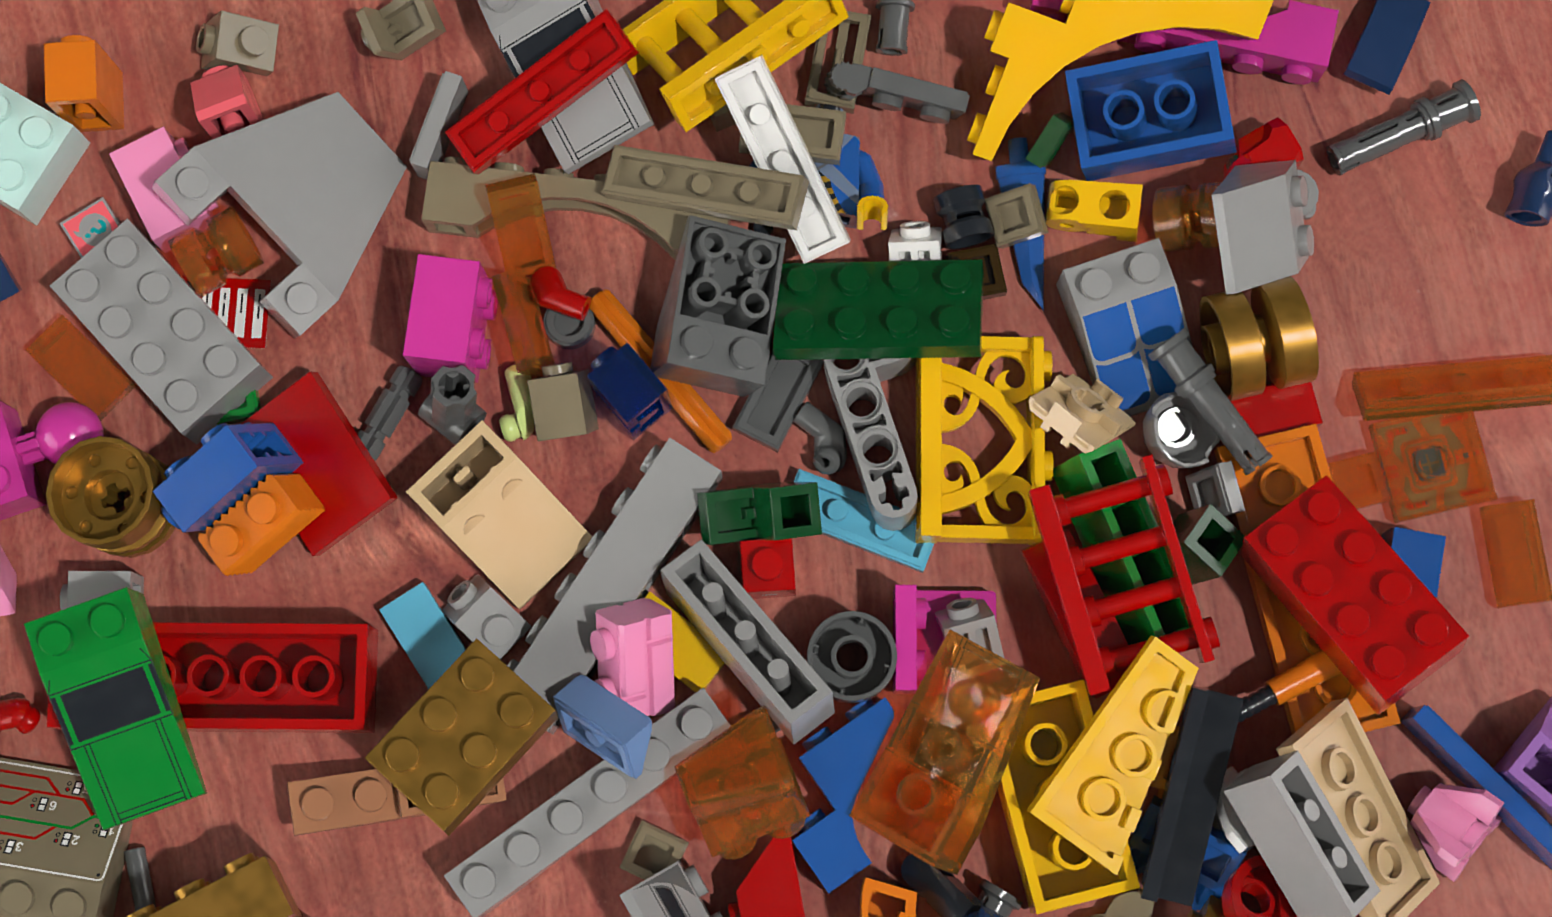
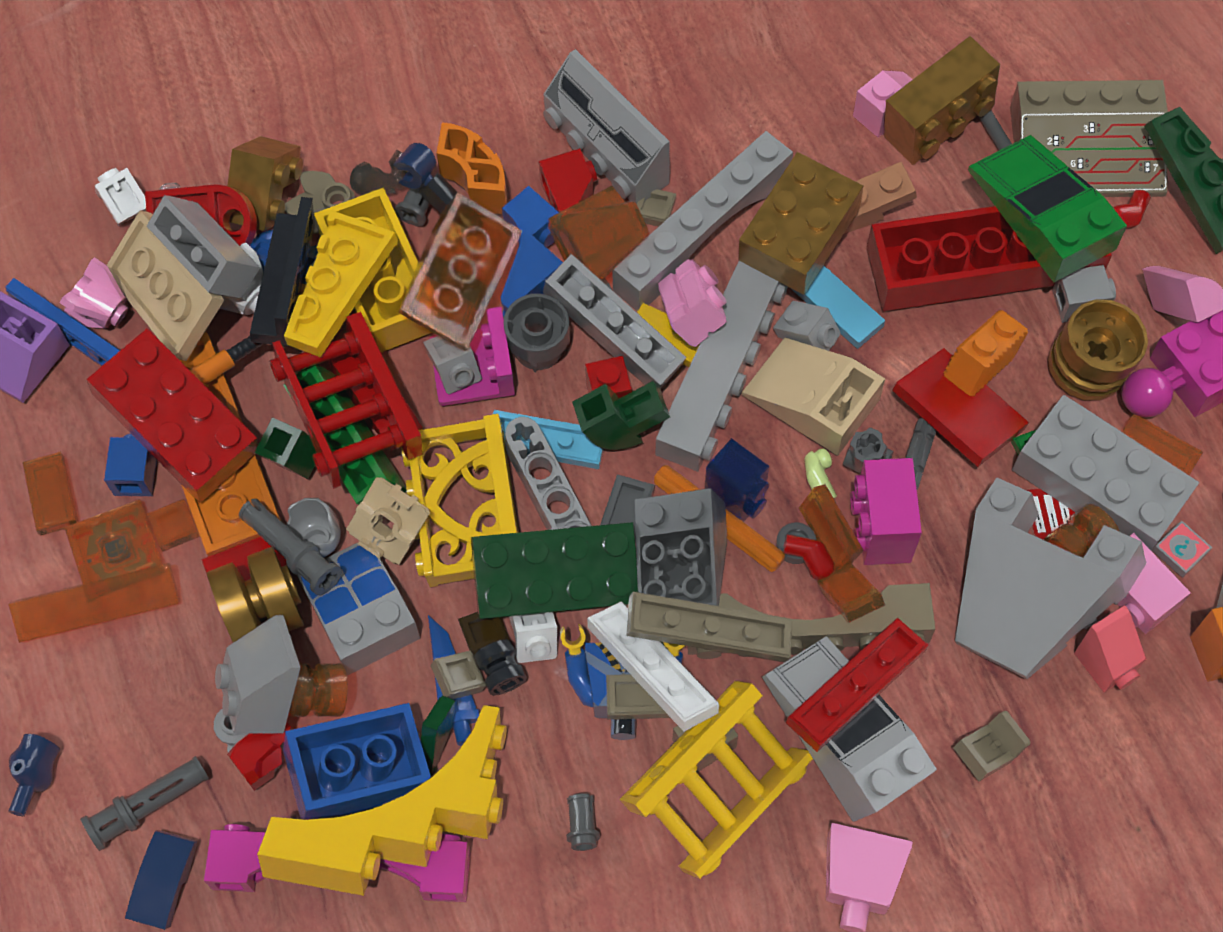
camera: 170 degrees right, 15 degrees down
(222, 472) = (1019, 371): blue brick -> none
(238, 41) = (1120, 710): dark tan bracket -> none
(440, 117) = (937, 669): light grey tile -> none
(562, 402) = (789, 471): dark tan brick -> none
(604, 724) = (704, 251): medium blue slope -> none
(812, 95) = (622, 822): dark tan tile -> none
(829, 439) = (580, 483): dark grey arm -> none
(894, 90) = (571, 754): dark grey hinge -> none
(1095, 208) = (395, 687): yellow leg -> none
(1217, 487) = (279, 490): light grey tile -> none

